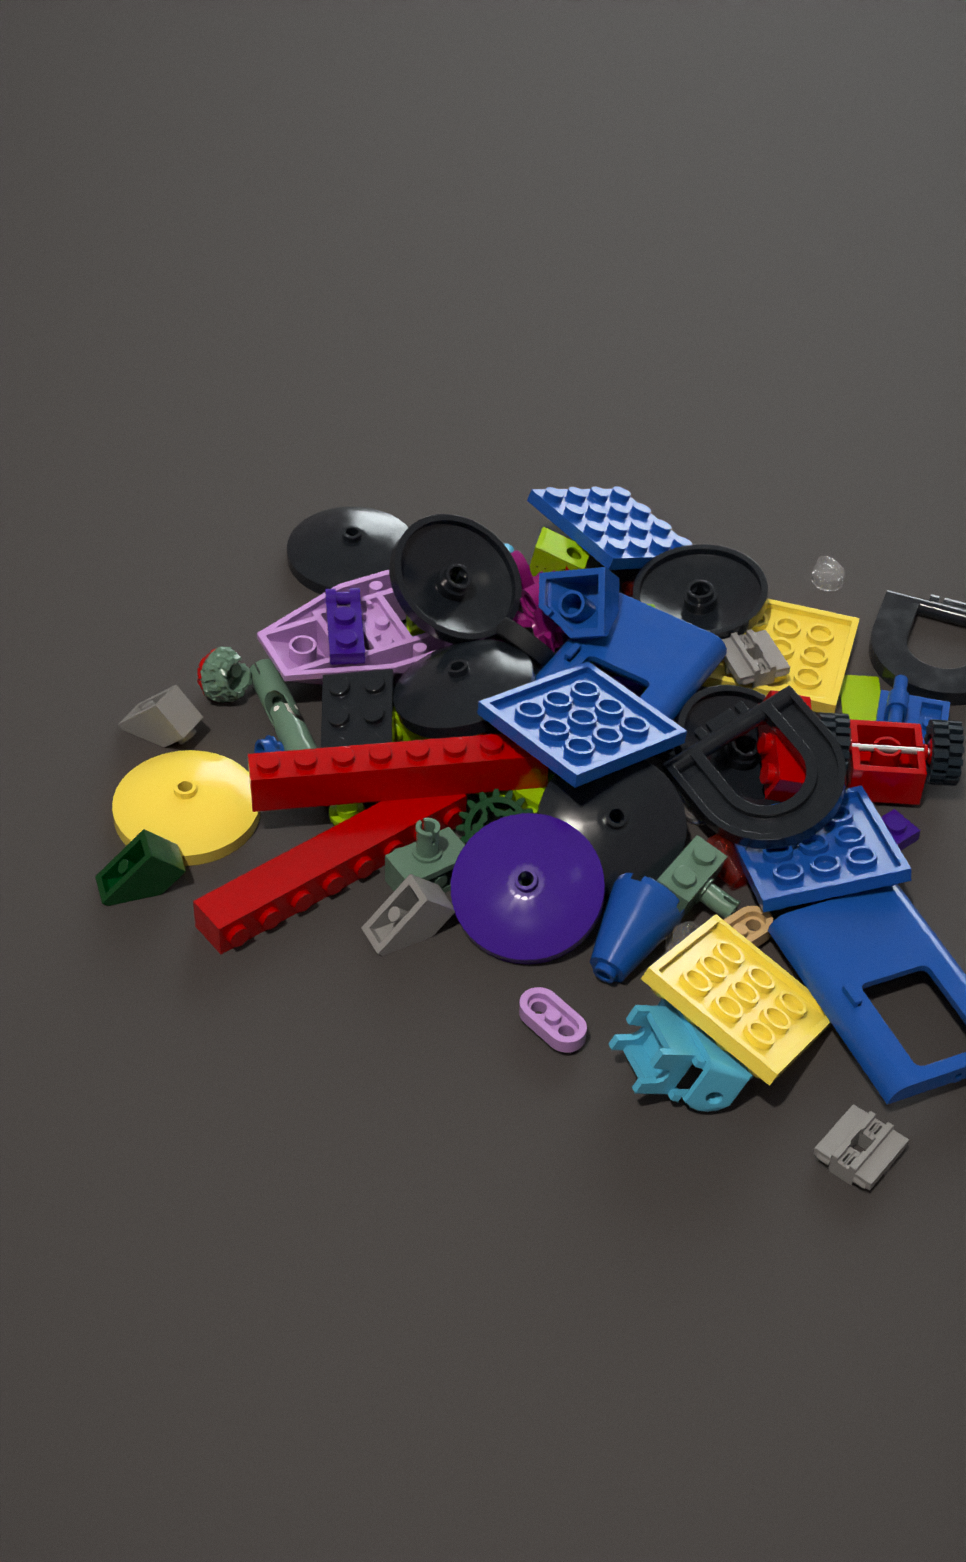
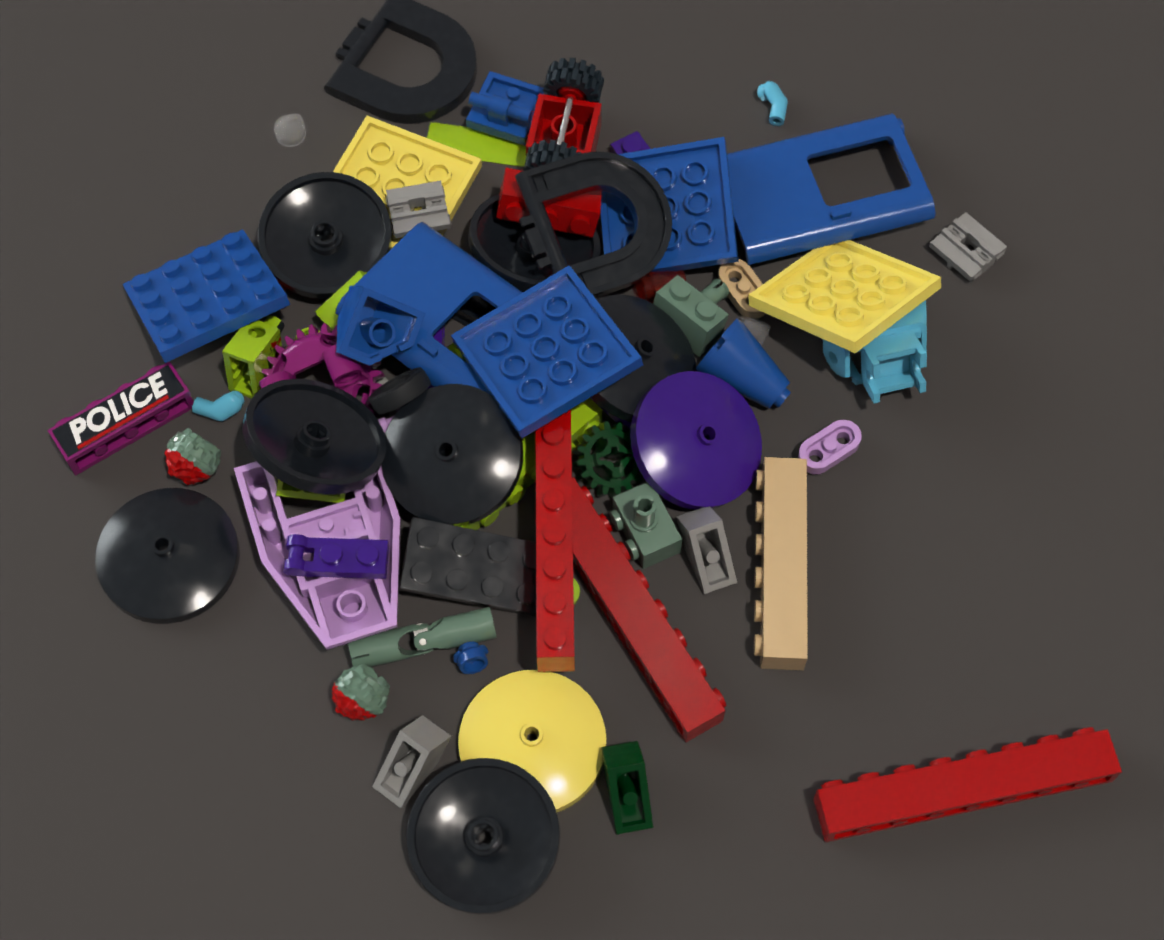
camera: 80 degrees left, 20 degrees up
(84, 766) = (447, 828): none -> black dish
(154, 1163) = (966, 784): none -> red brick
(401, 982) = (783, 564): none -> tan brick
(476, 497) = (121, 417): none -> brick

